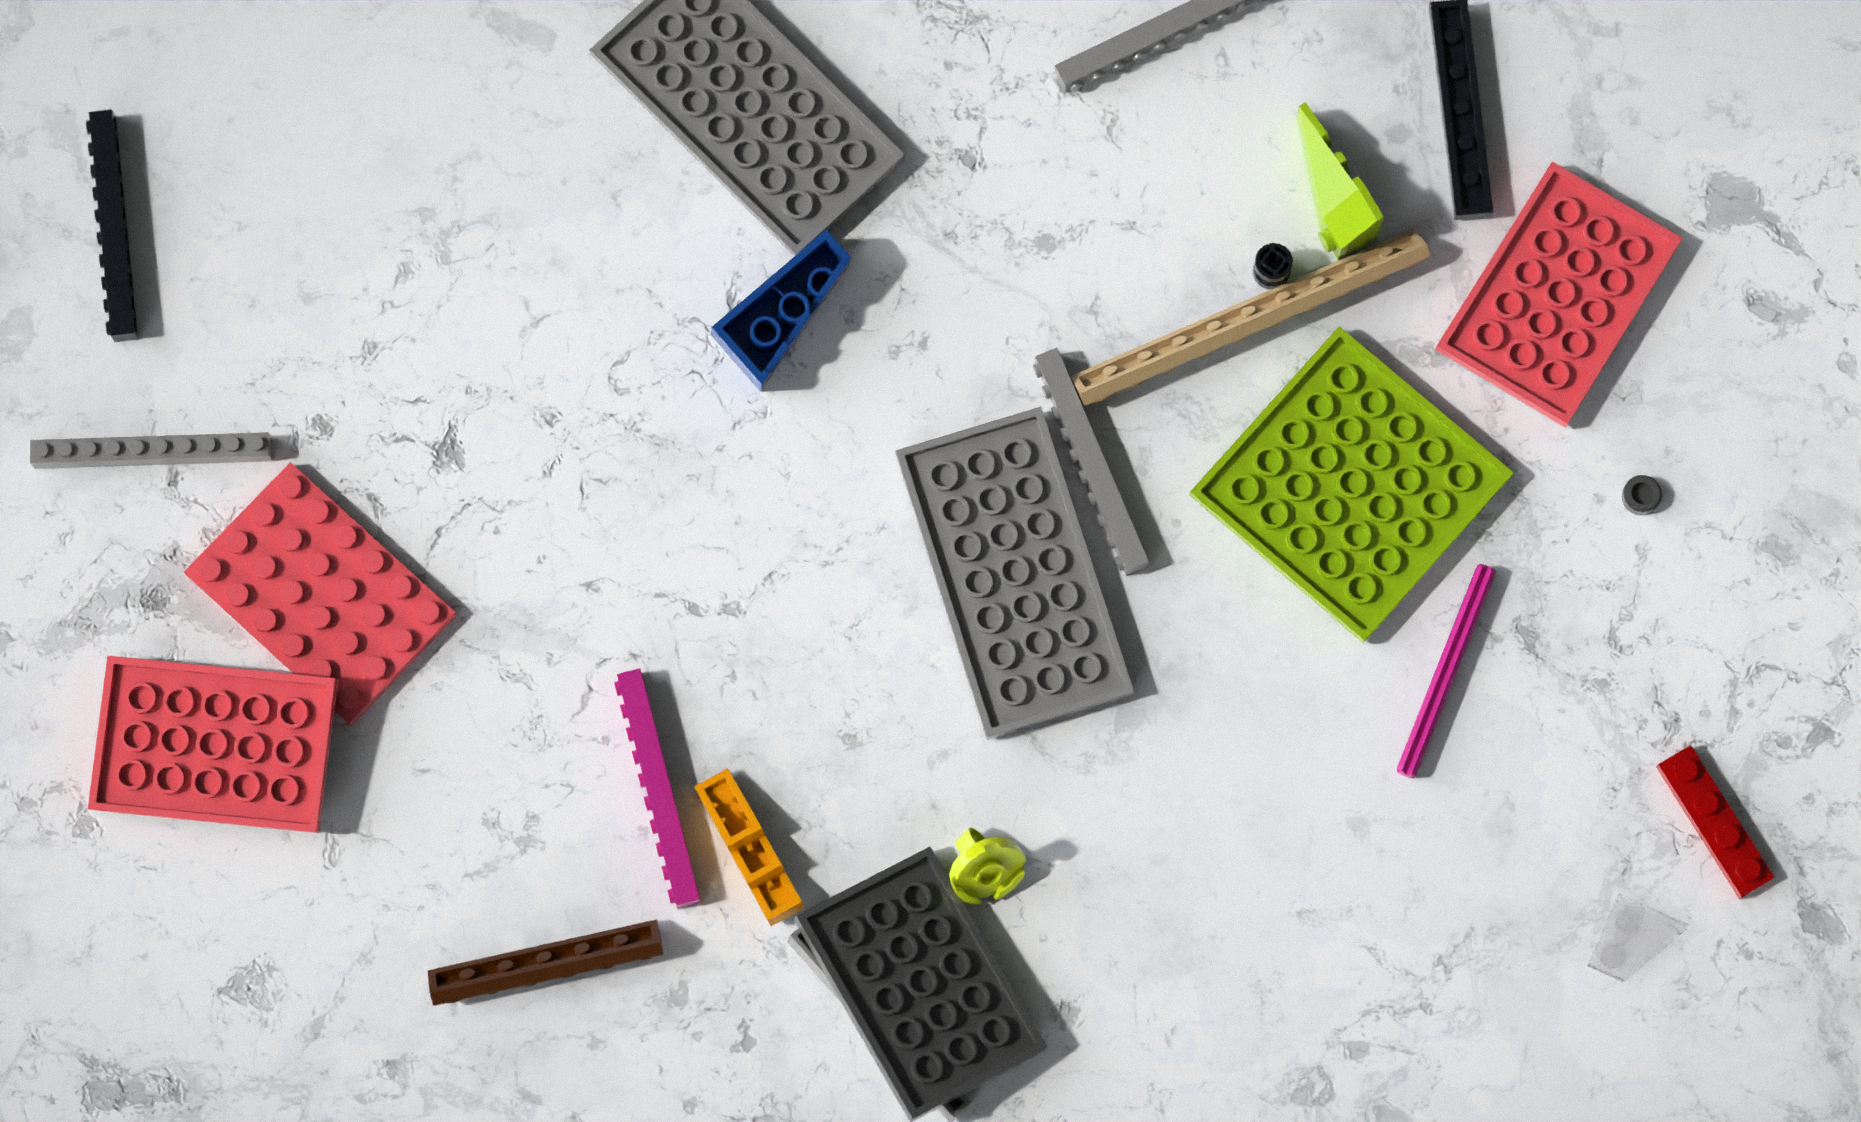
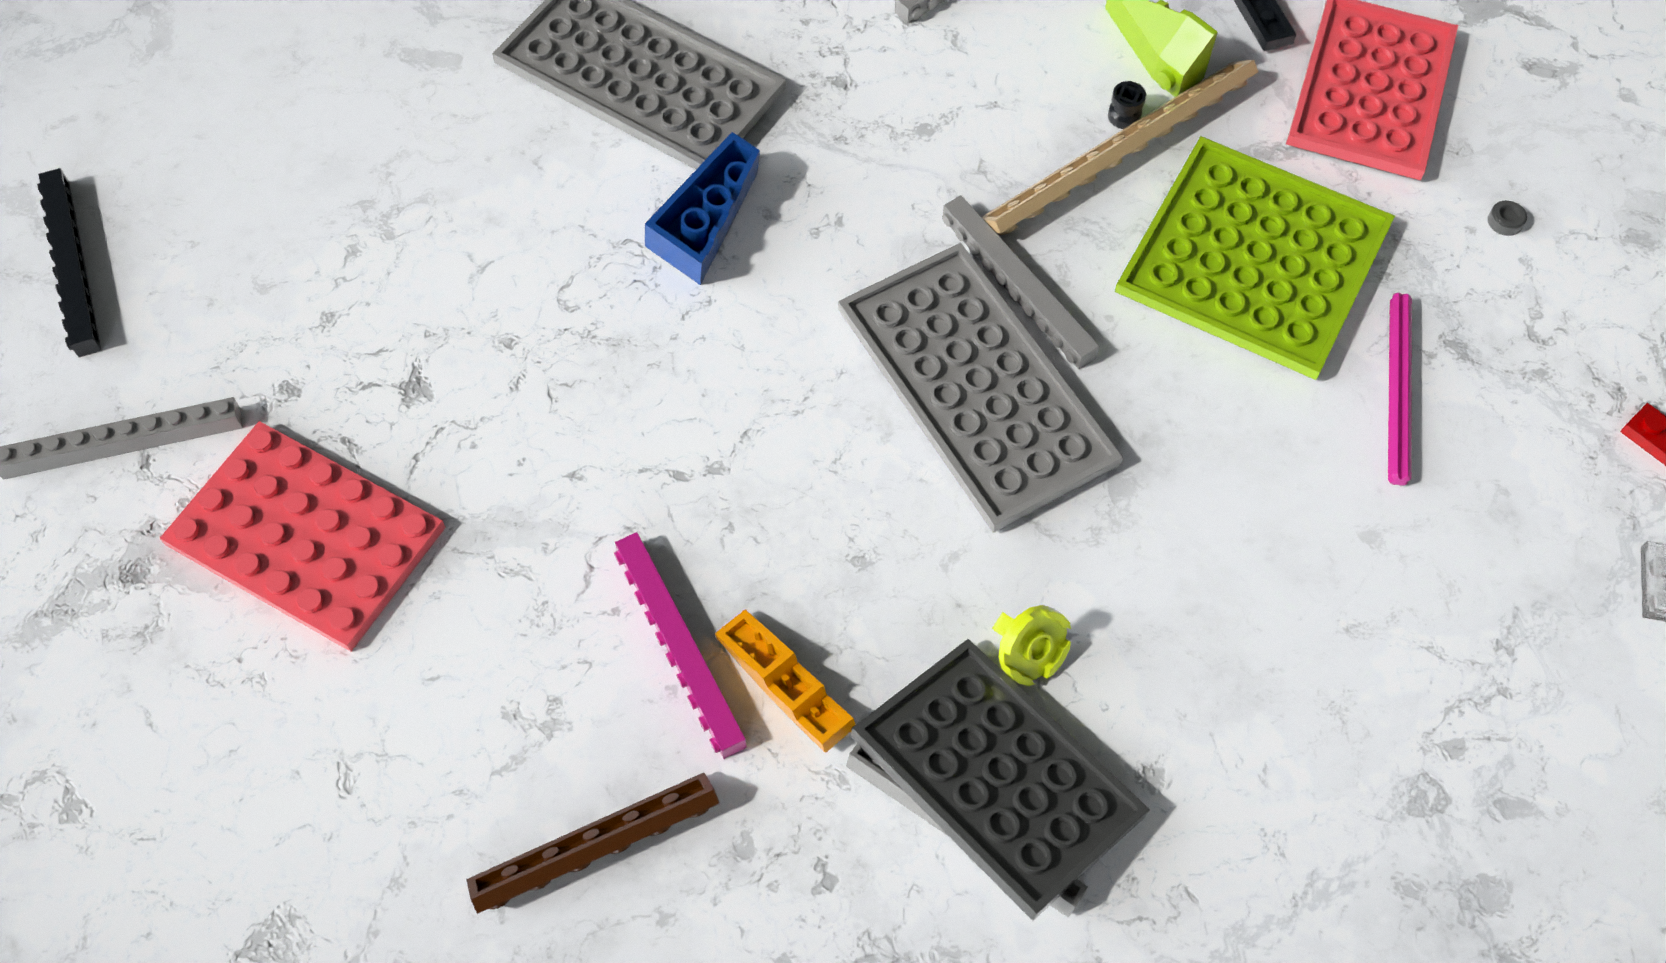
camera: 15 degrees left, 15 degrees down
(213, 744) = (201, 694): coral plate -> none

